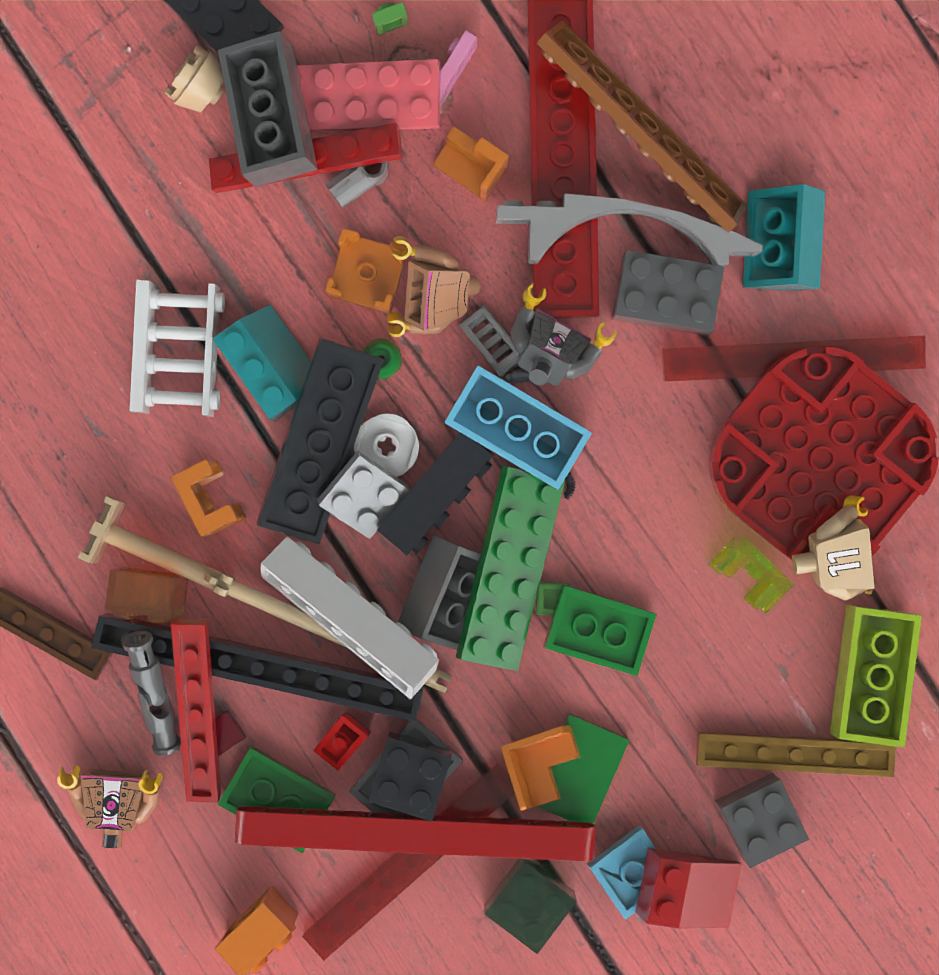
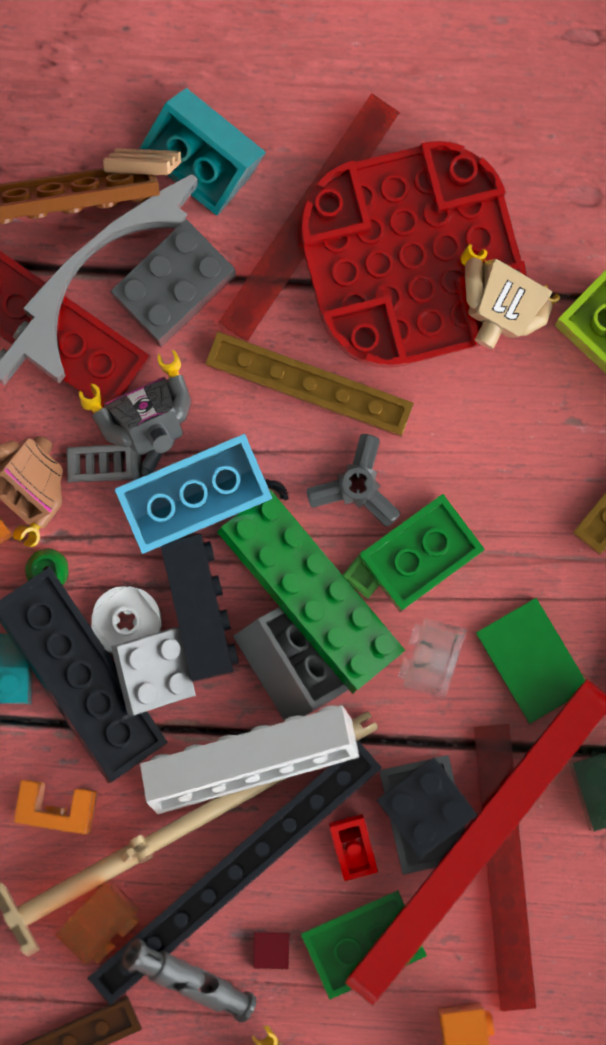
camera: 55 degrees left, 5 degrees down
(196, 709) = (233, 953): red plate -> none
(526, 698) = (433, 658): none -> clear slope
(531, 762) = (491, 694): orange panel -> none
(603, 534) = (361, 467): none -> dark grey bush
(666, 452) = (309, 384): none -> pearl gold plate
(743, 200) = (142, 161): none -> light nougat tile
(772, 581) = (464, 377): clear neon green panel -> none

